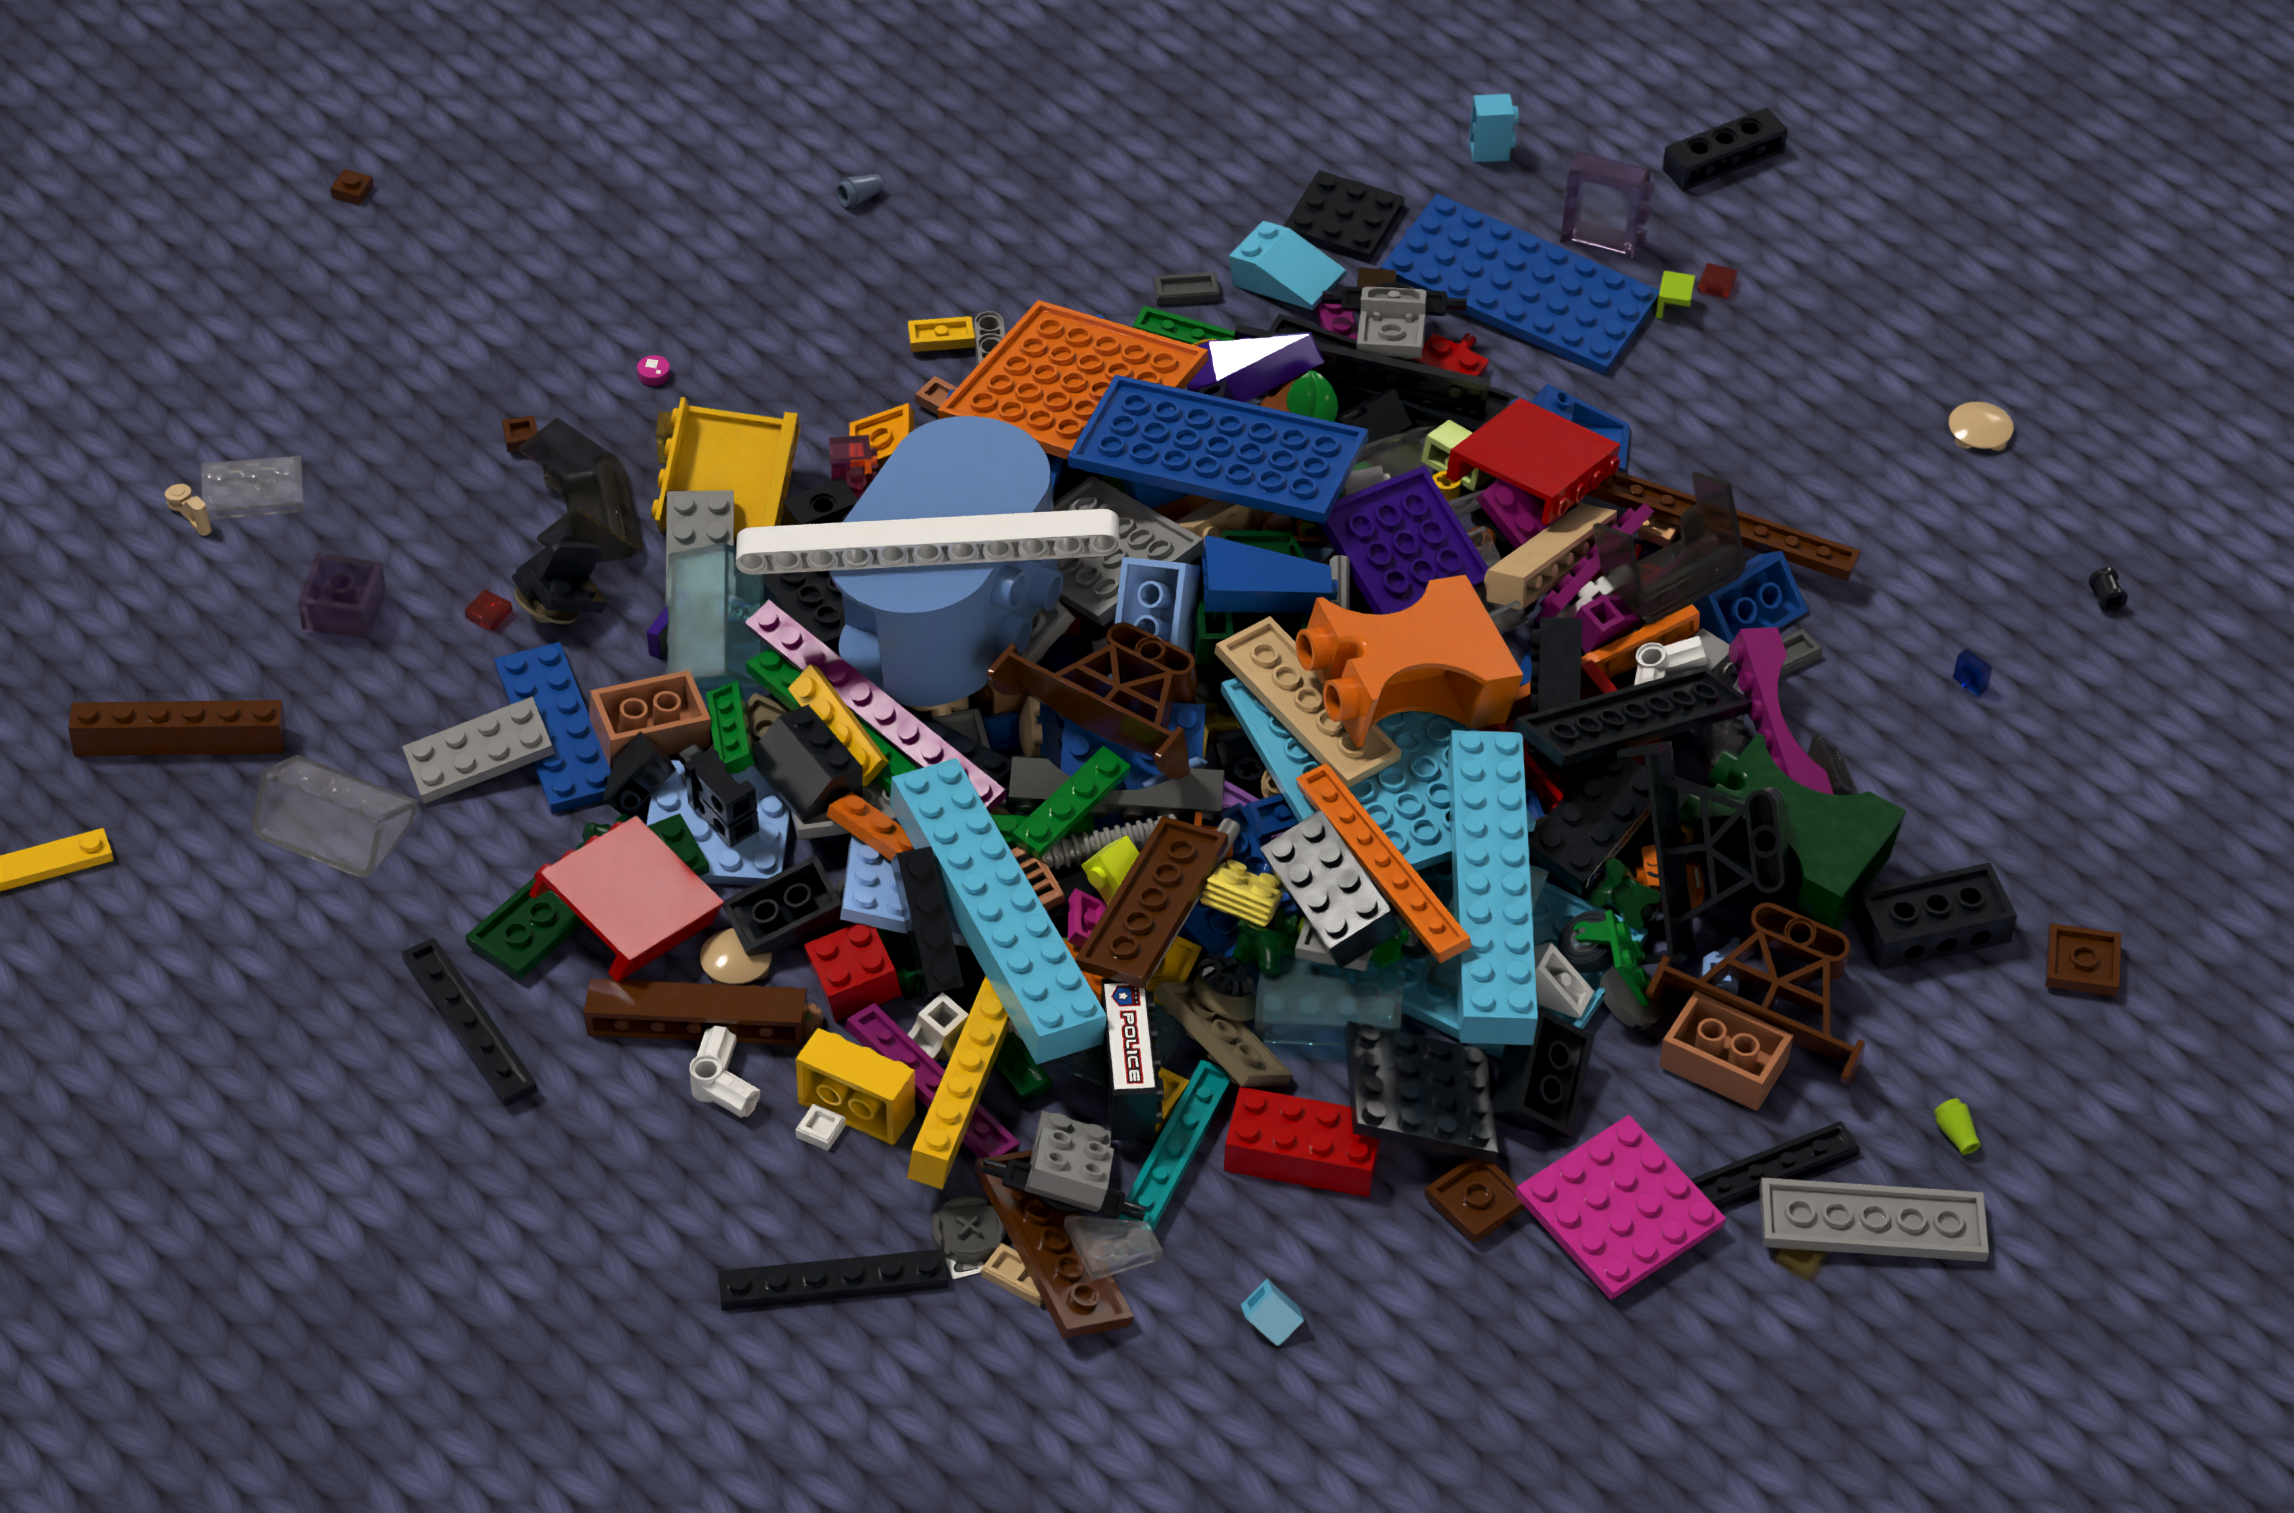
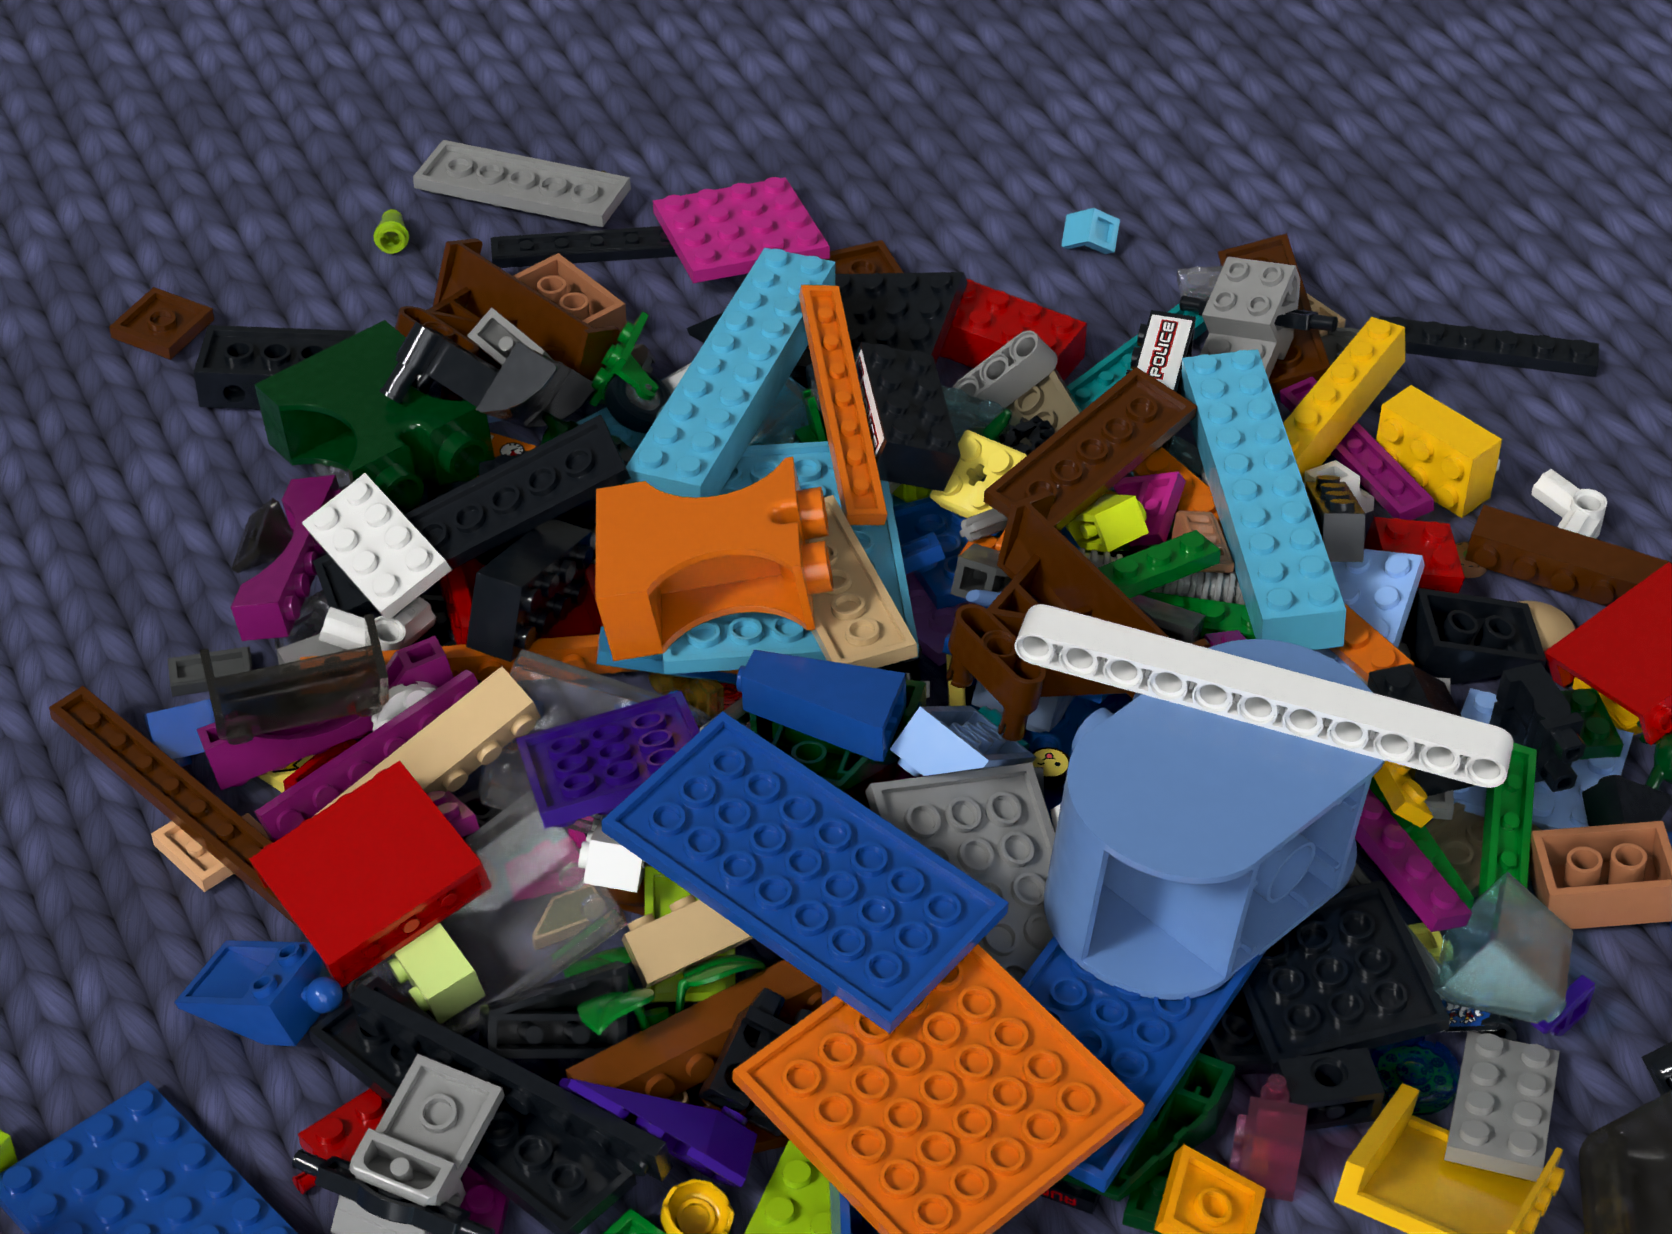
camera: 160 degrees left, 5 degrees down
(1276, 1052) = (1010, 370): none -> light grey beam
(1449, 488) = (473, 935): yellow bush -> none
(1700, 693) = (376, 546): none -> white plate
(1713, 929) = (499, 336): none -> light grey slope
(1972, 672) = (31, 588): clear blue plate -> none

